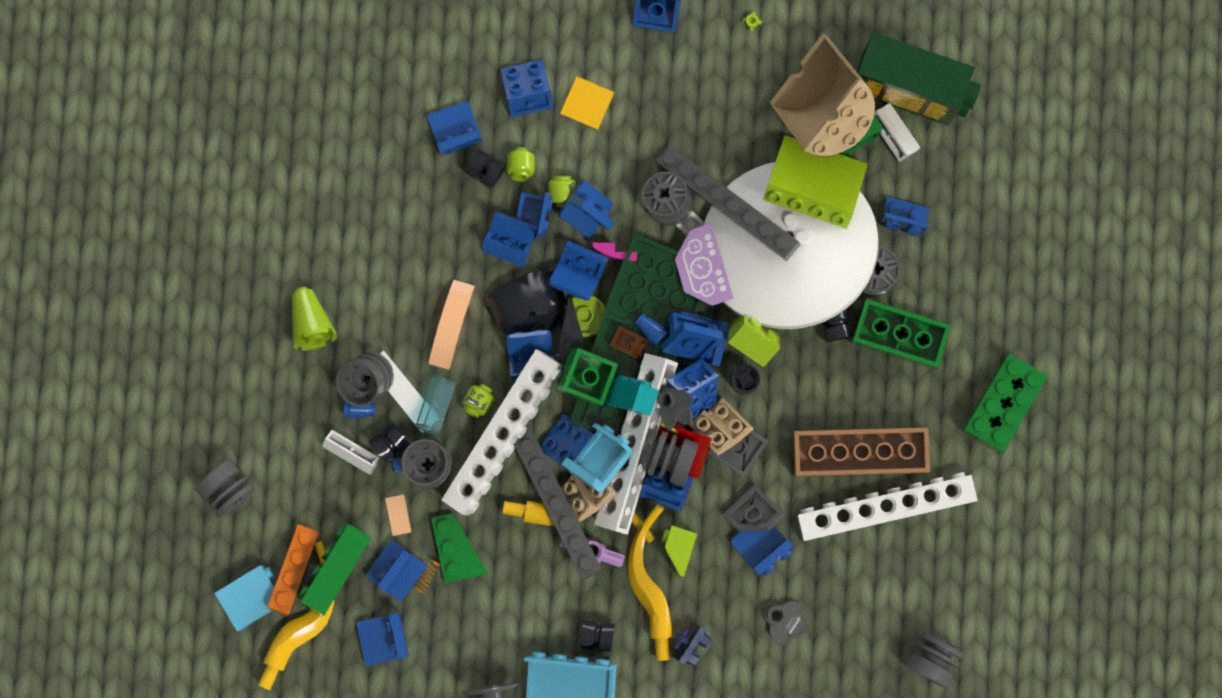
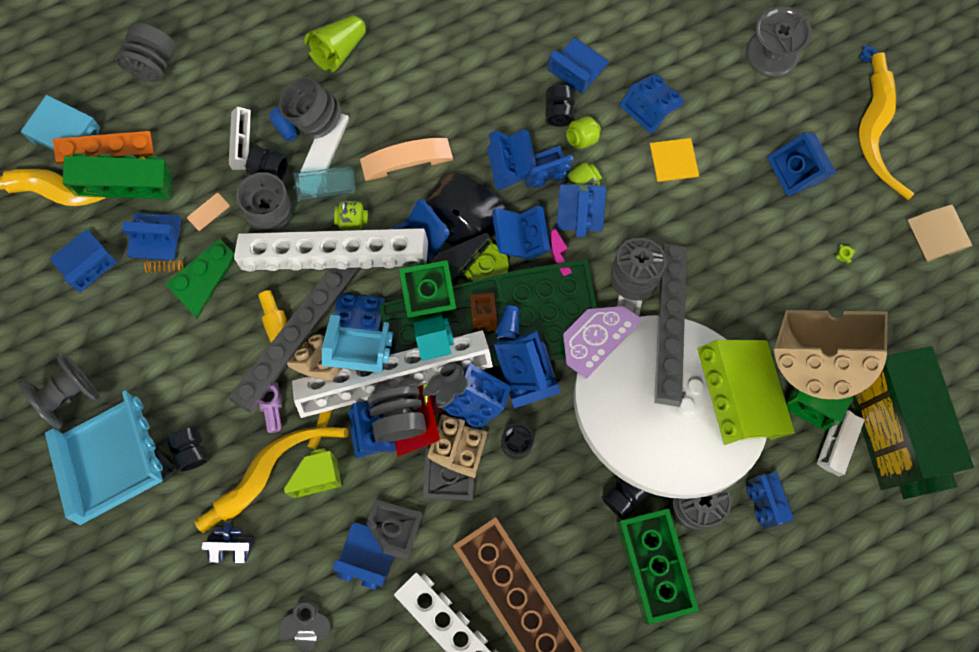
camera: 55 degrees right, 10 degrees down
(753, 339) = (559, 422): lime slope -> none

